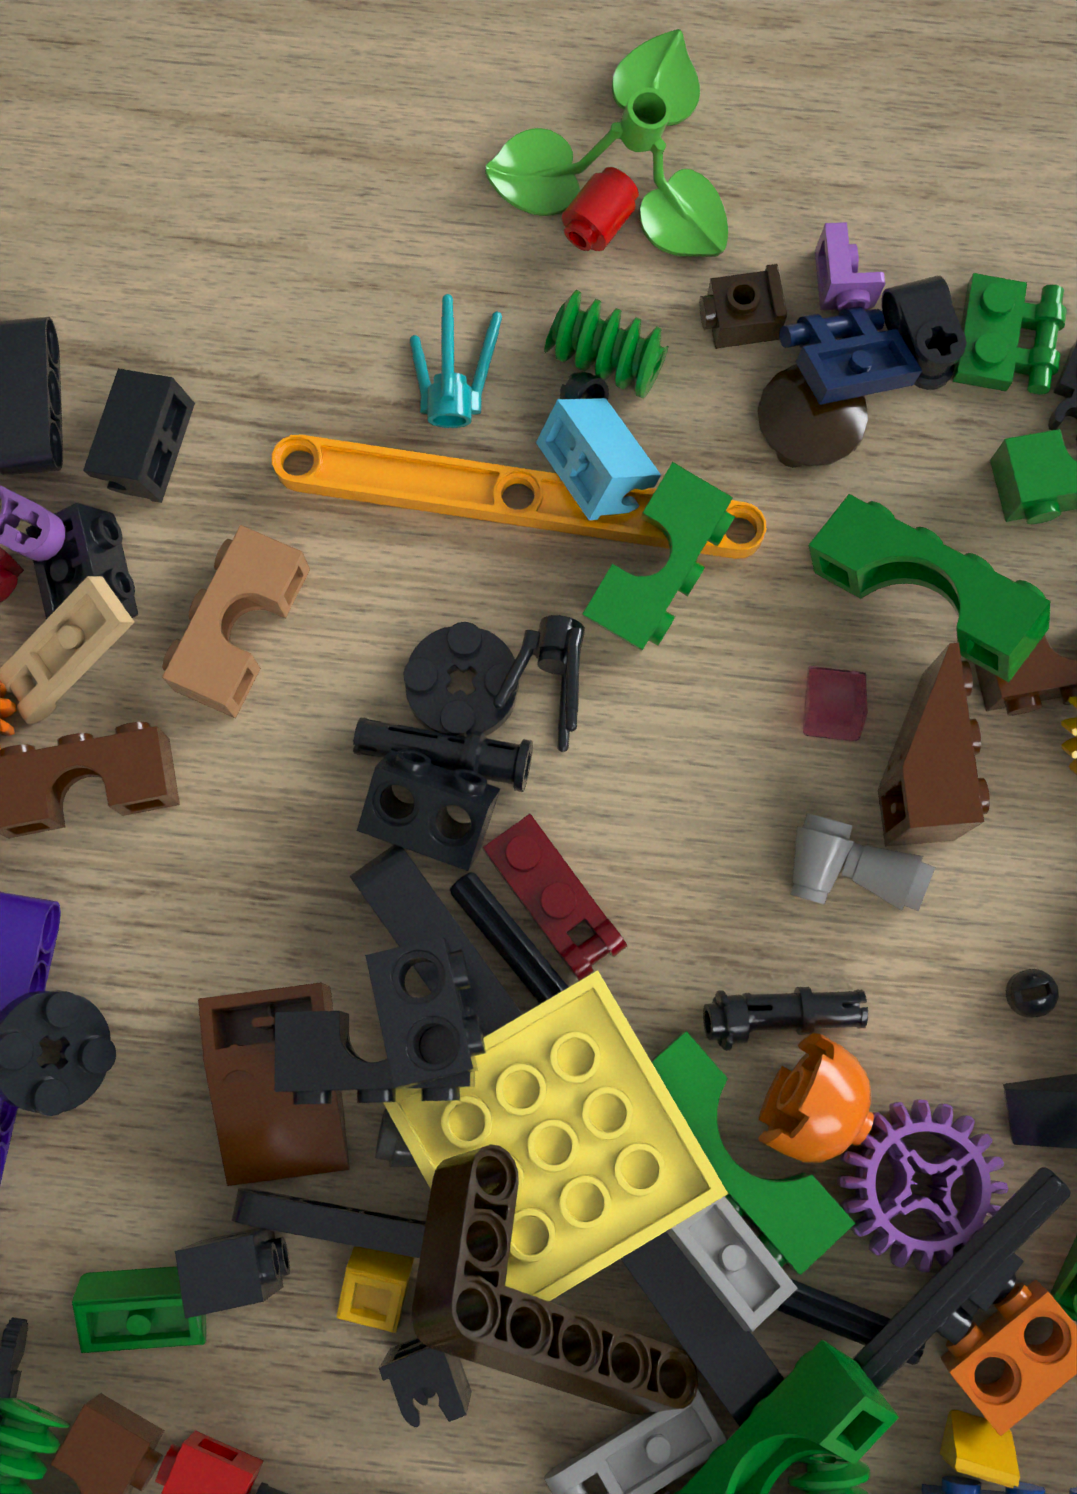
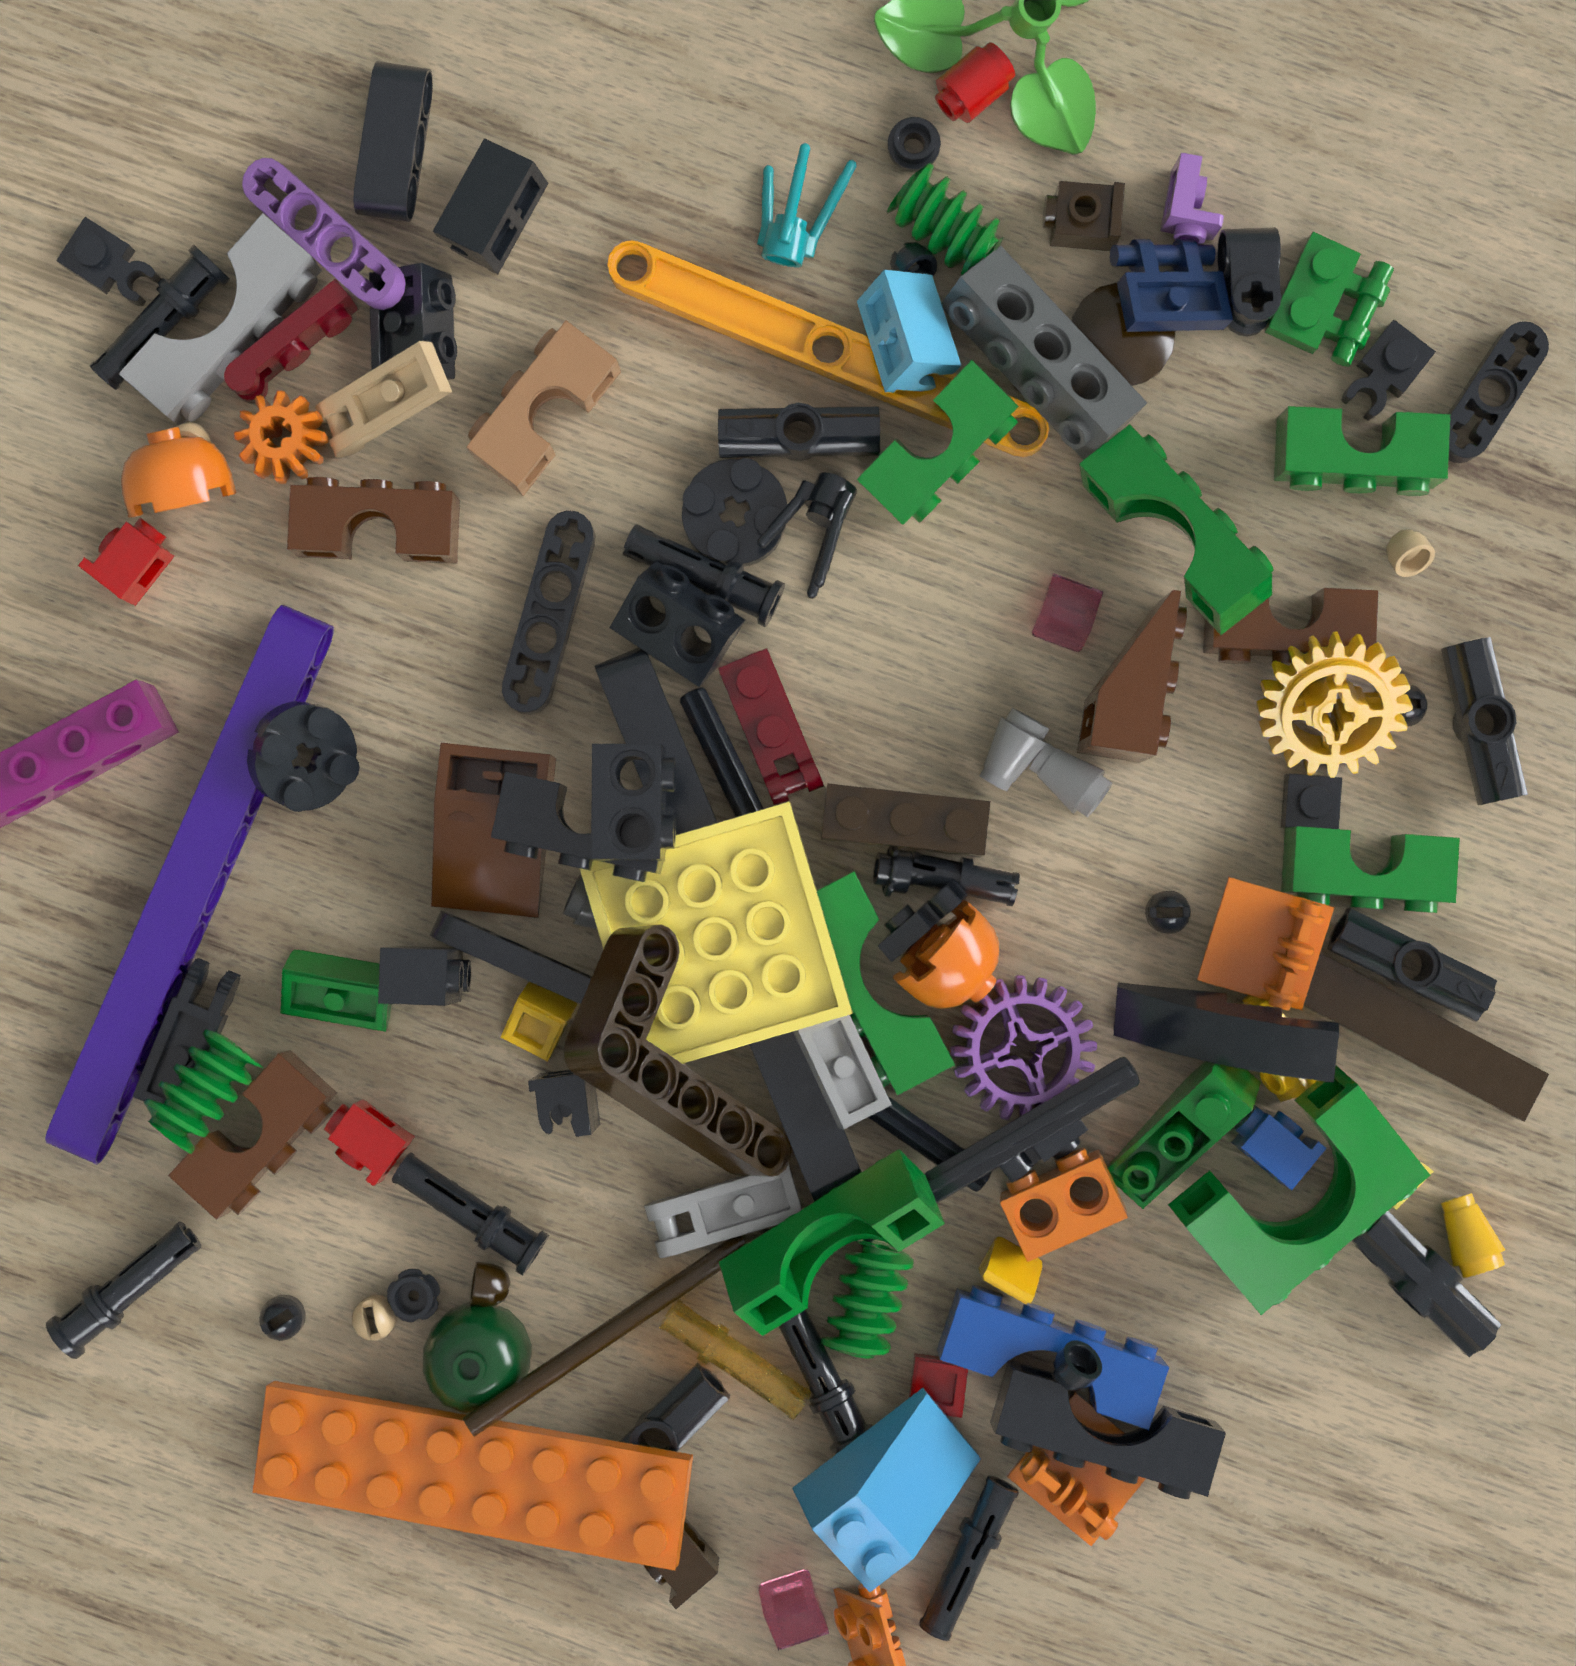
camera: 15 degrees right, 10 degrees up
(281, 832) = (542, 611): none -> black beam
(546, 575) = (836, 432): none -> black piece
(553, 267) = (917, 129): none -> black plate
(726, 961) = (905, 820): none -> dark brown arch
(739, 447) = (1042, 353): none -> dark grey brick
(763, 1076) = (910, 925): none -> black plate

